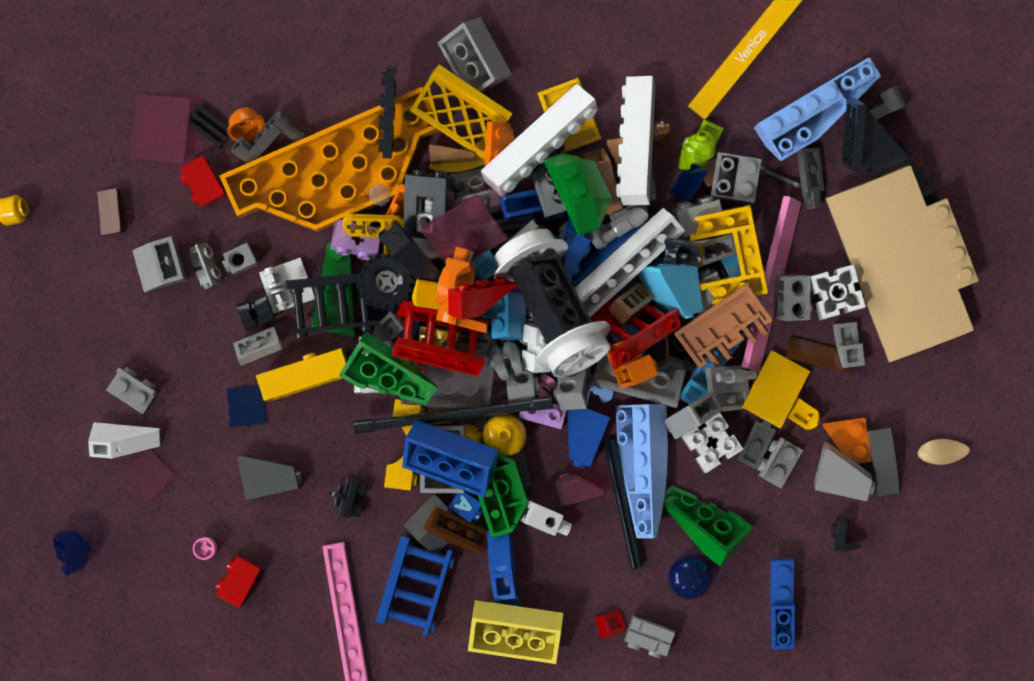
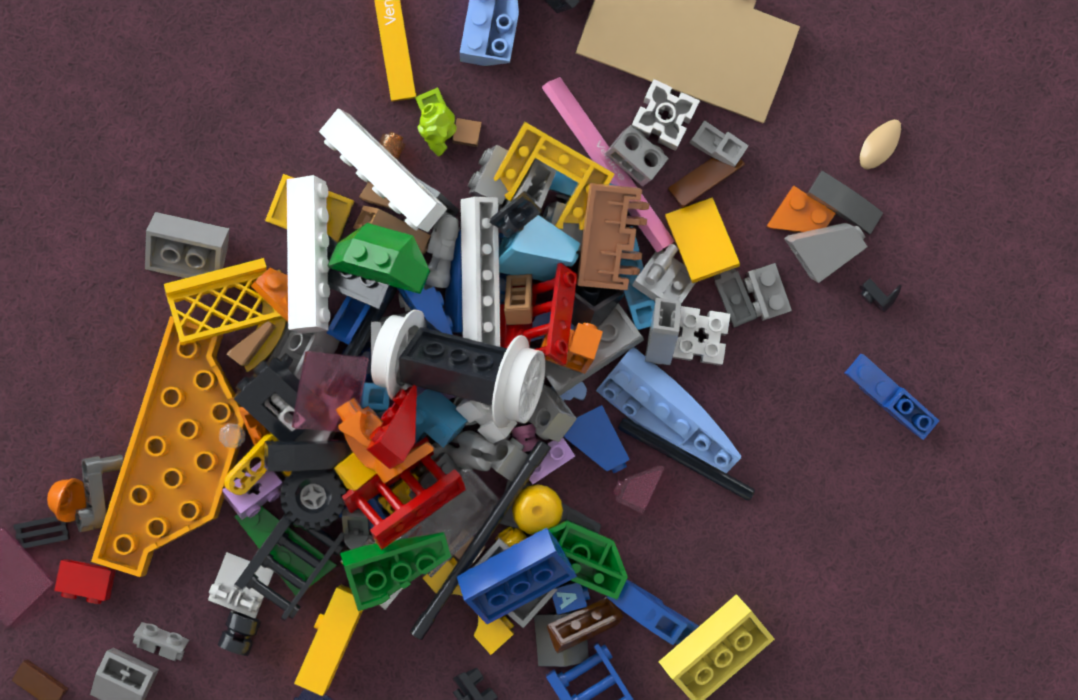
camera: 55 degrees left, 0 degrees up
(249, 259) = (189, 598): light grey brick -> none
(257, 346) = (270, 657): light grey bracket -> none
(387, 102) = (192, 392): black wing -> none
(536, 516) = (631, 543): white torso -> none
(610, 624) = (780, 560): red slope -> none
(649, 636) = (820, 536): light grey brick -> none
(689, 182) = (458, 158): clear blue piece -> none
(689, 577) = (799, 456): clear blue cylinder -> none
(711, 529) = (772, 402): green wedge -> none
(736, 178) = (490, 114): light grey slope -> none
(763, 170) = (503, 86): dark grey hinge -> none
(804, 415) = (746, 235): yellow plate -> none
(811, 177) = (545, 49): dark grey hinge -> none

